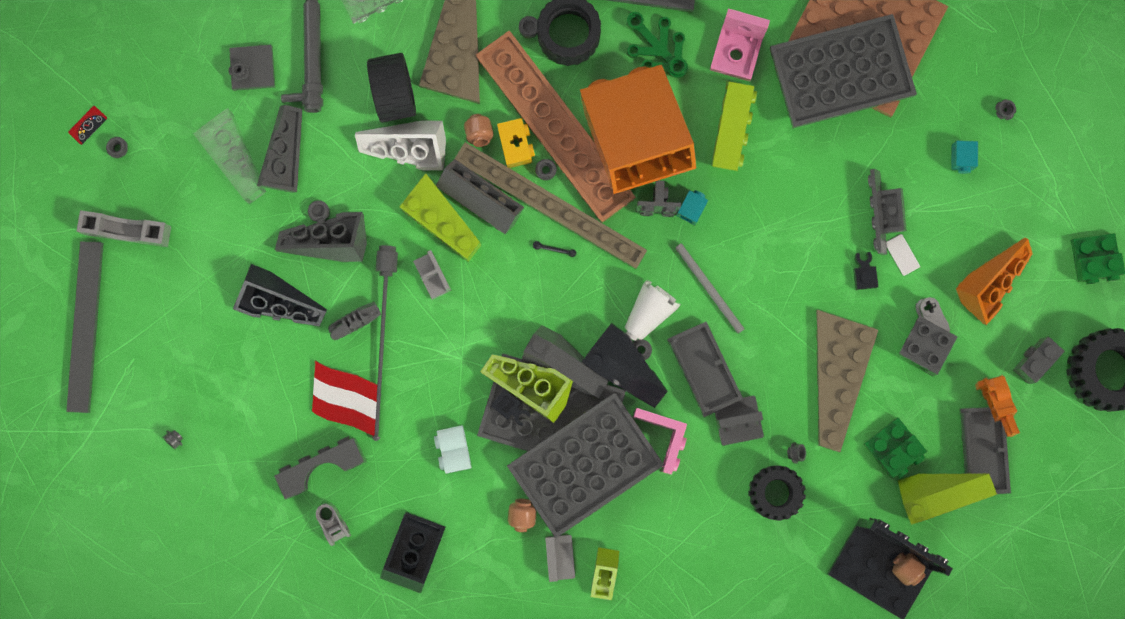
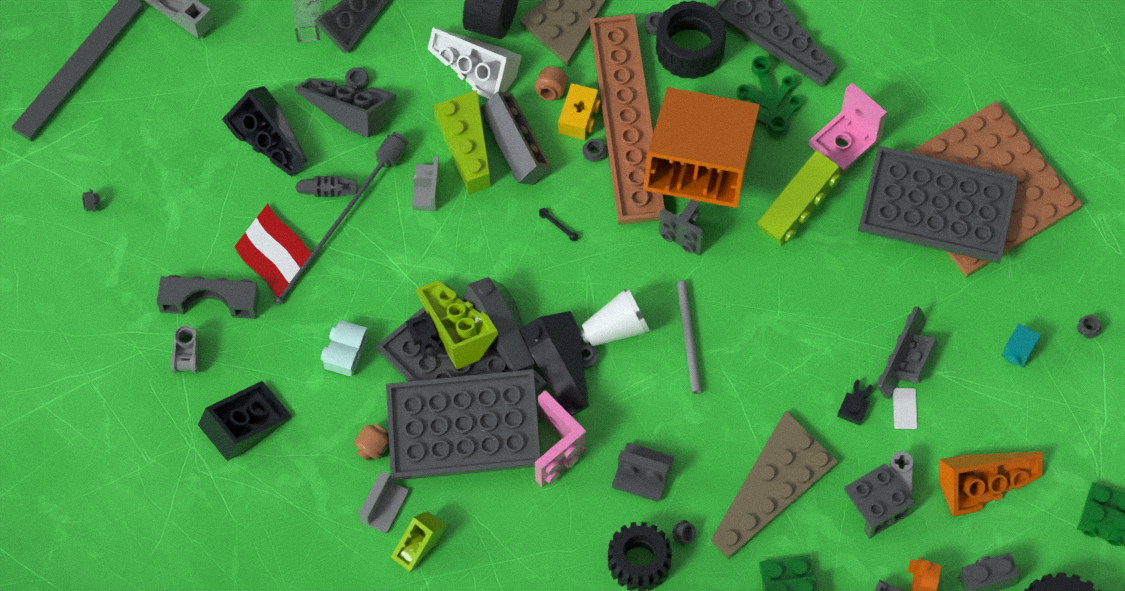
camera: 30 degrees right, 20 degrees down
(551, 206) = (581, 186): dark tan plate -> none
(692, 207) = (716, 253): teal brick -> none
(705, 369) = (638, 405): dark grey container -> none

